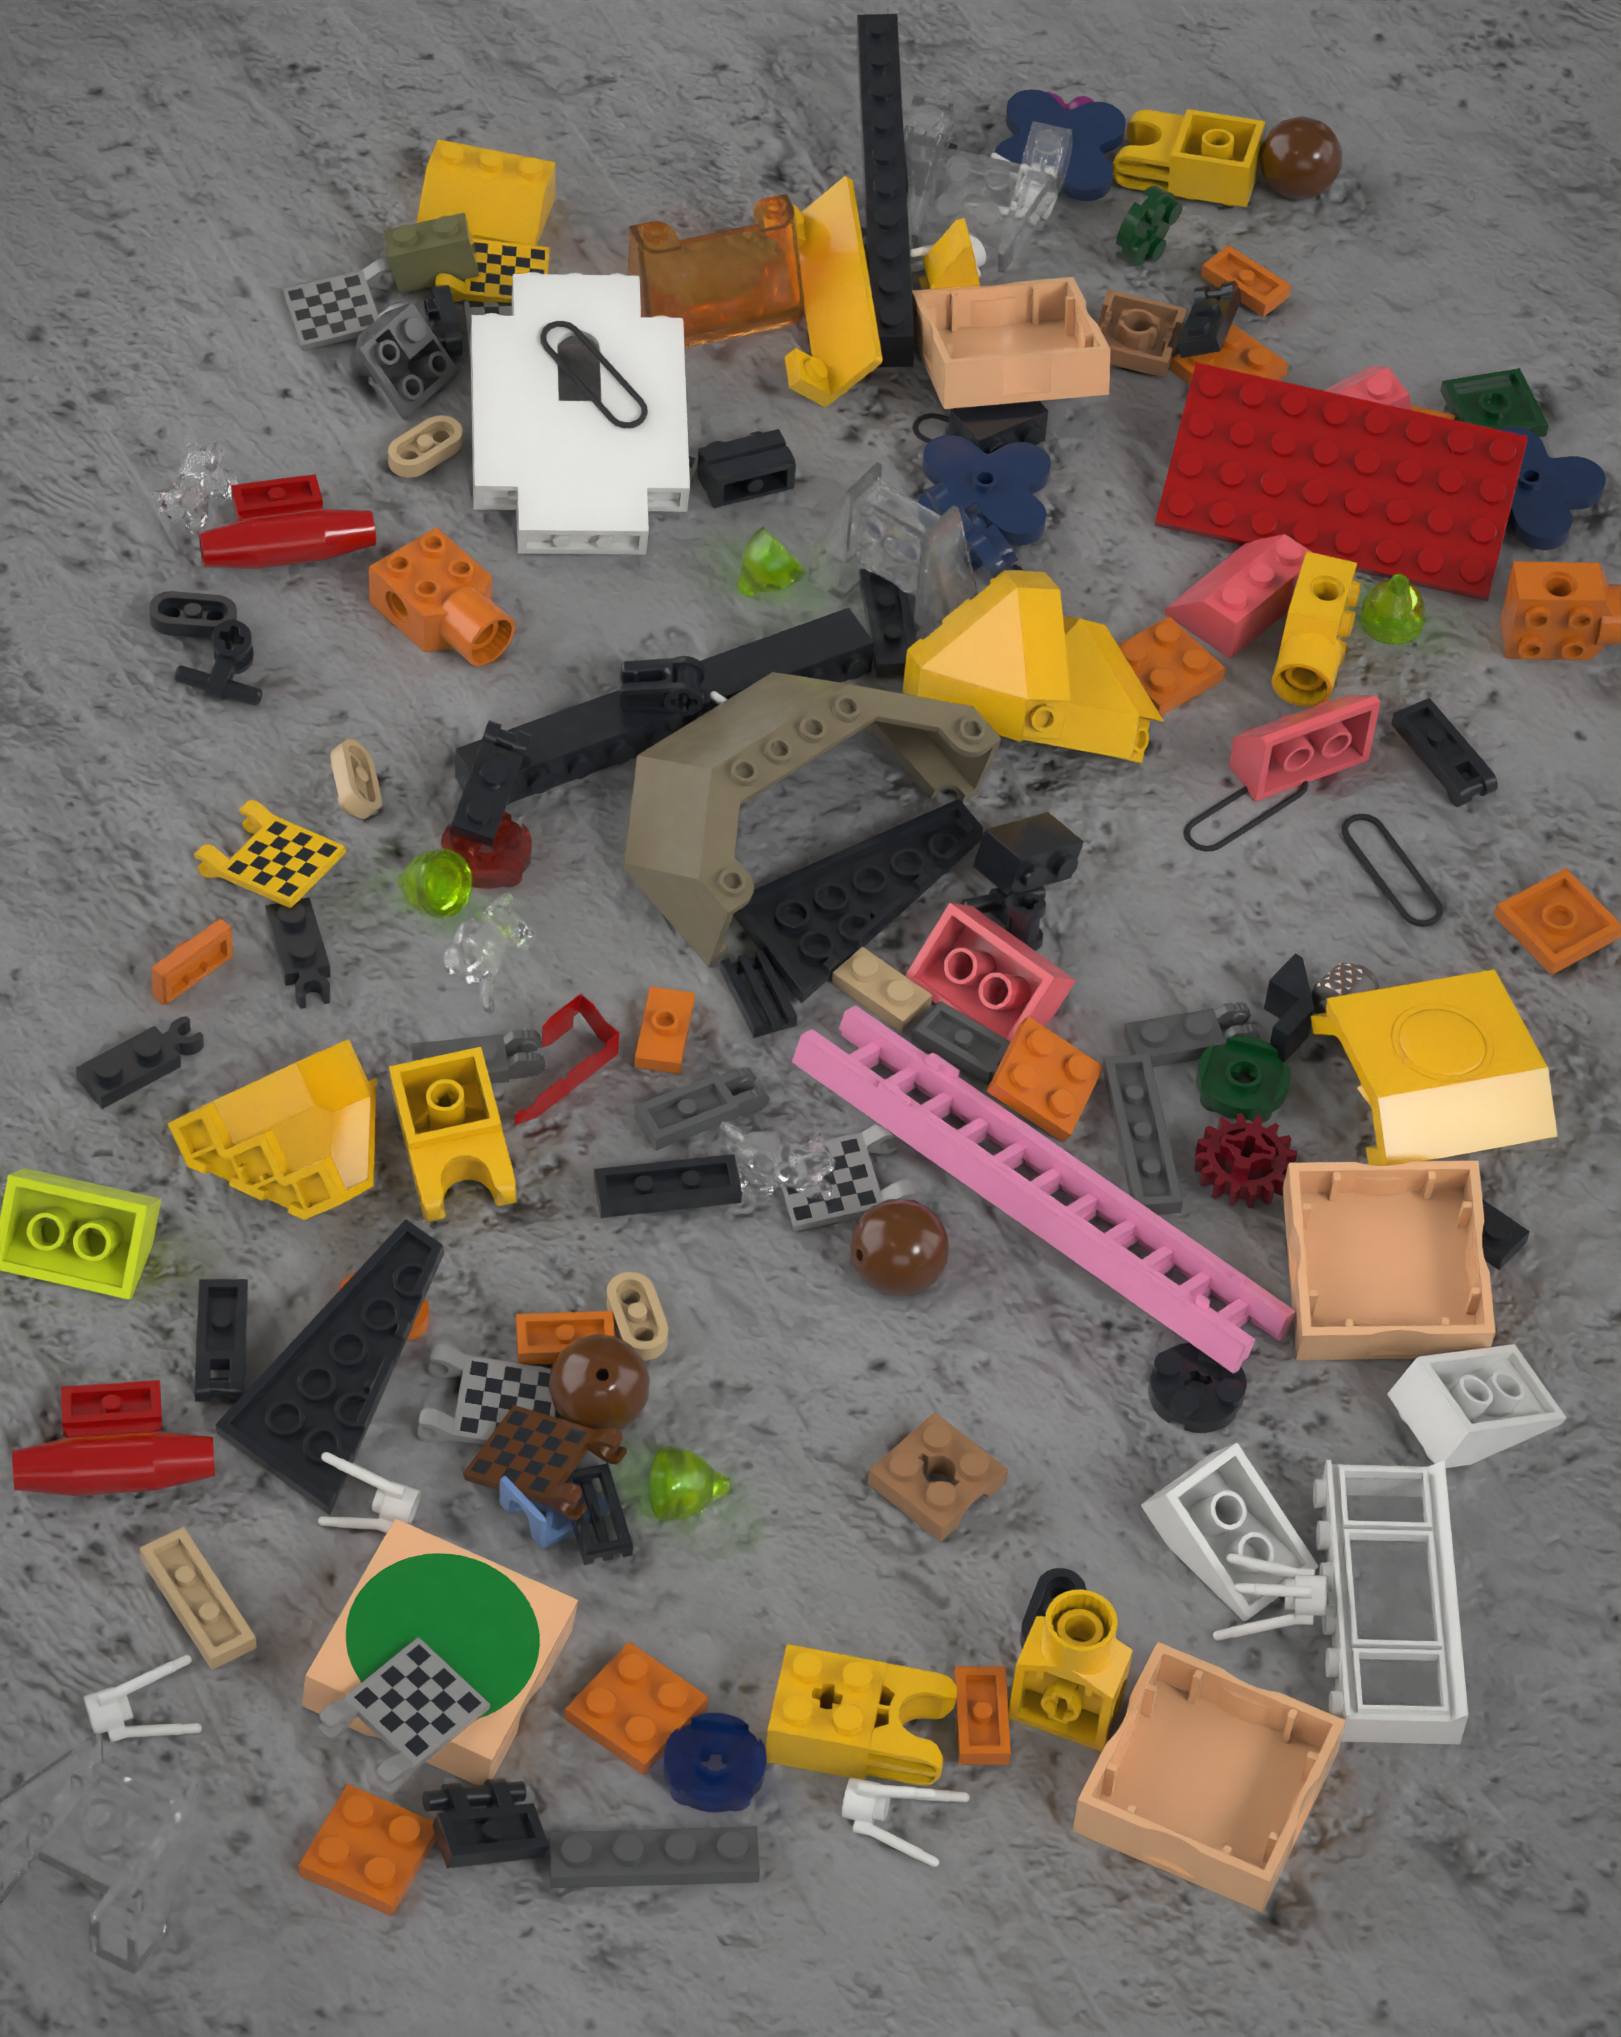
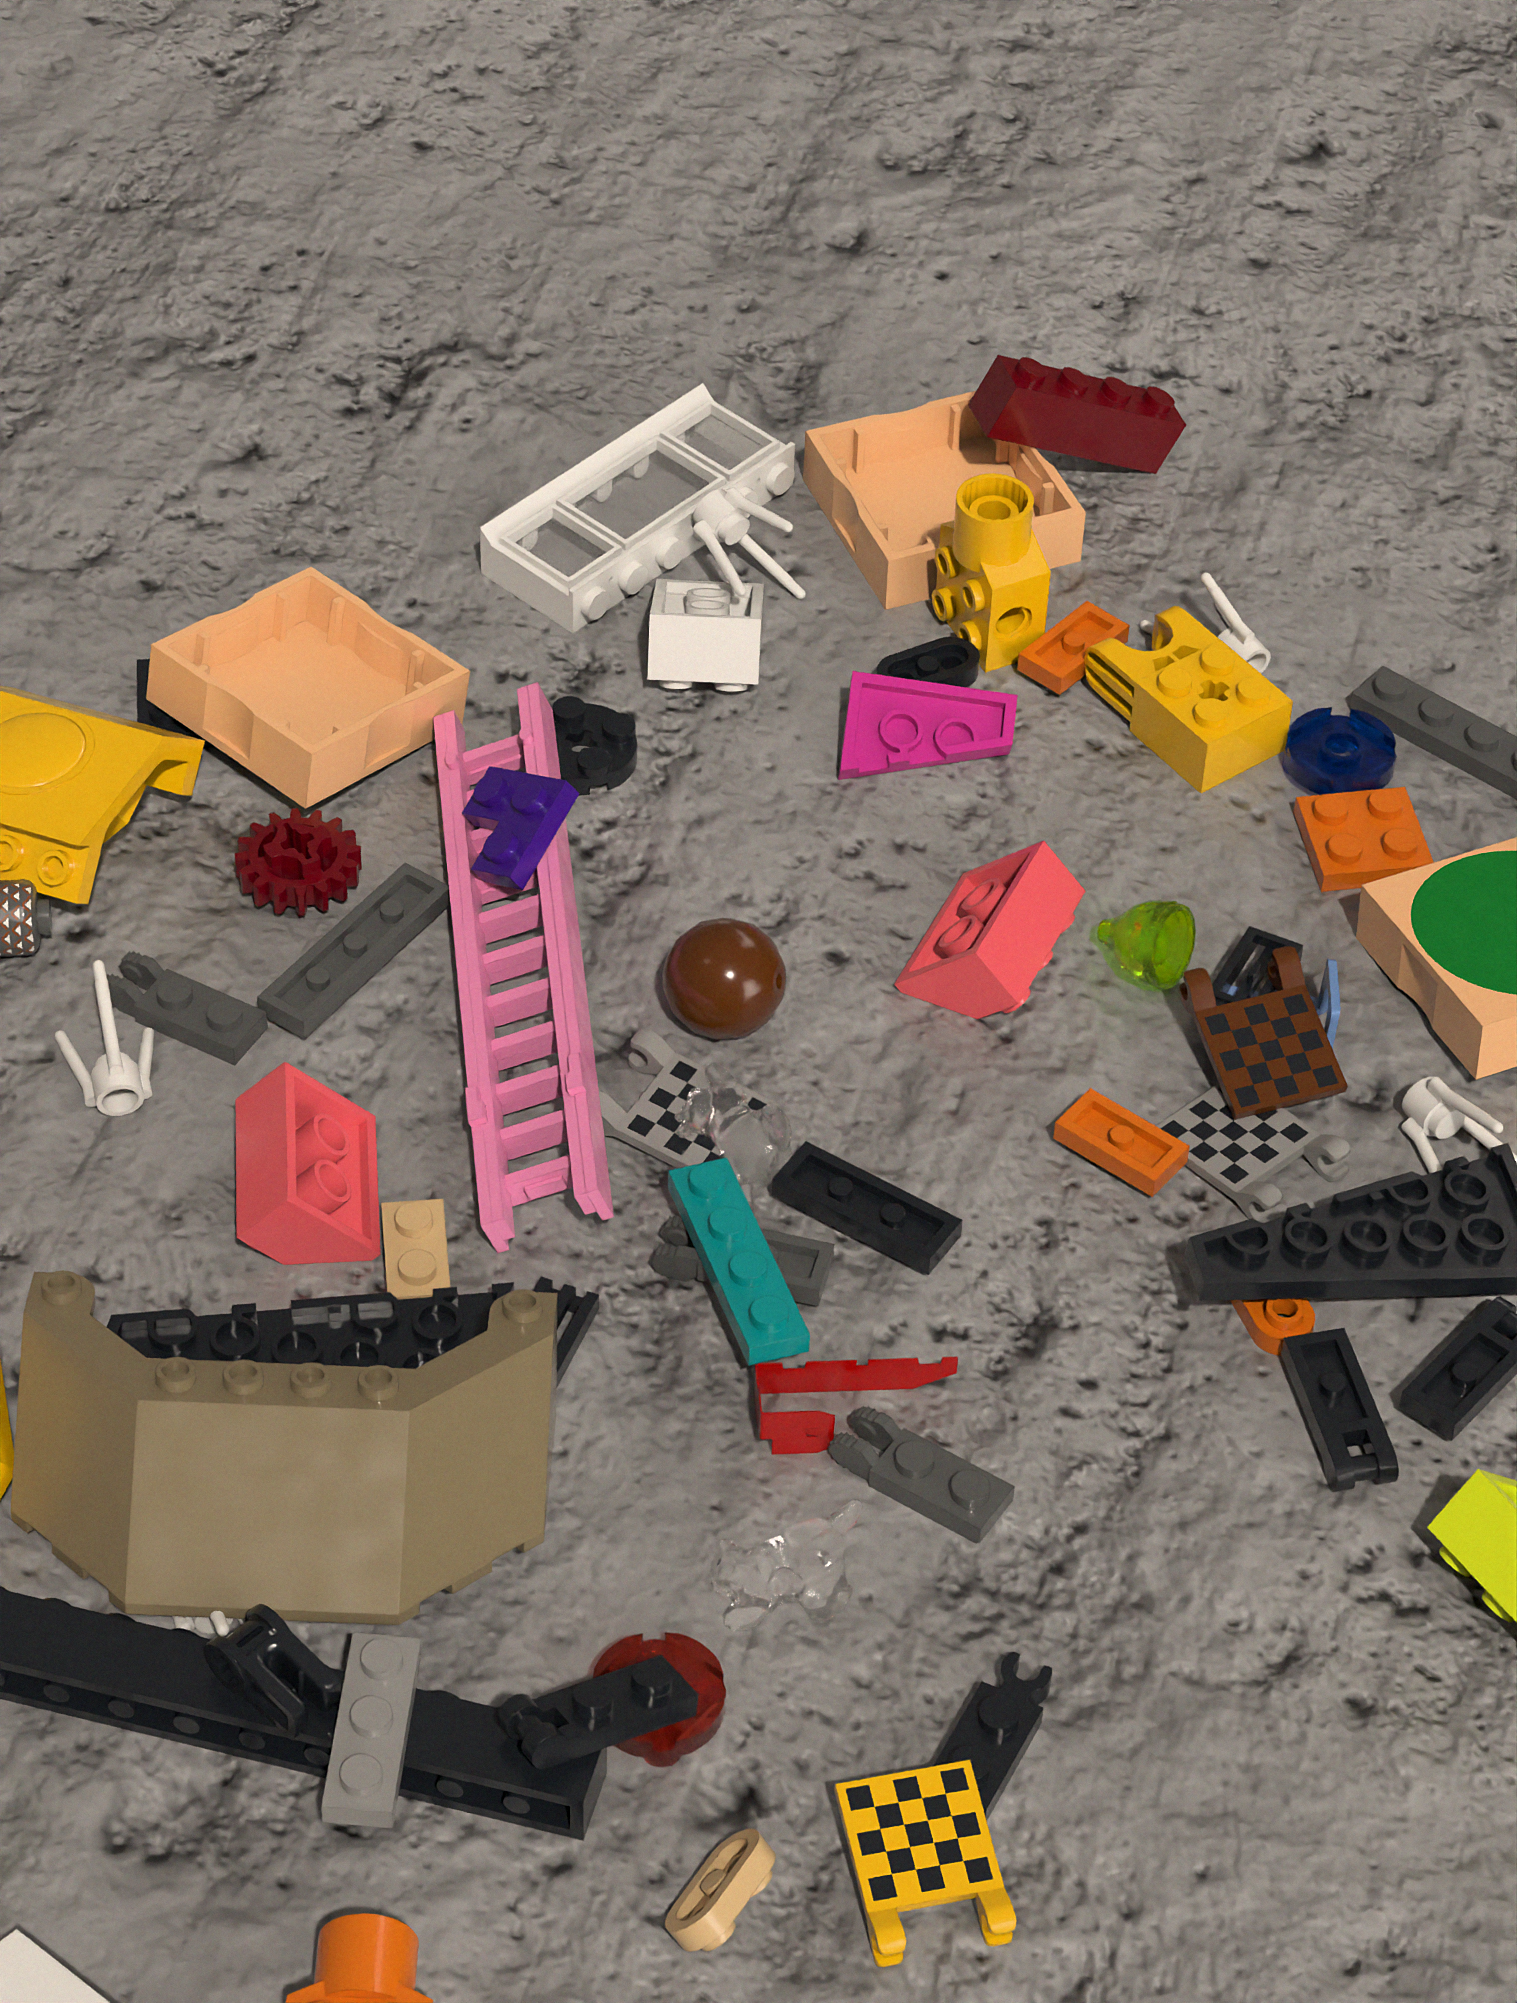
camera: 135 degrees left, 5 degrees down
(137, 1062) = (1302, 1736): black plate -> none
(192, 961) = (1141, 1791): orange plate -> none
(279, 1255) = (1339, 1409): none -> black plate
(292, 1135) = (1224, 1495): yellow panel -> none
(437, 883) = (776, 1682): clear neon green helmet -> none
(451, 1128) = (1039, 1390): yellow brick -> none
(589, 703) = (372, 1730): none -> light grey plate
(599, 1382) = (1146, 1052): reddish brown piece -> none
(639, 1319) = (1022, 1125): tan plate -> none
(664, 1030) = (683, 1369): orange plate -> none
(692, 1077) = (738, 1261): none -> teal plate
(786, 1422) = (994, 934): none -> coral slope
(943, 1451) = (929, 808): medium nougat brick -> none
(961, 1041) = (409, 1131): dark grey hinge -> none
(1009, 1558) = (921, 724): none -> dark pink wing
(1018, 912) = (198, 1213): black piece -> none
(1028, 853) = (117, 1236): black brick -> none
(1045, 1079) = (386, 1038): orange plate -> none
(1125, 1240) = (525, 818): none -> dark purple plate
(1162, 958) = (116, 1081): none -> white plant
(1175, 1881) = (1076, 414): none -> dark red brick
(1229, 1097) = (201, 957): dark green plate -> none
(1291, 1002) = (73, 935): black slope -> none
(1473, 1403) = (398, 567): white slope -> none

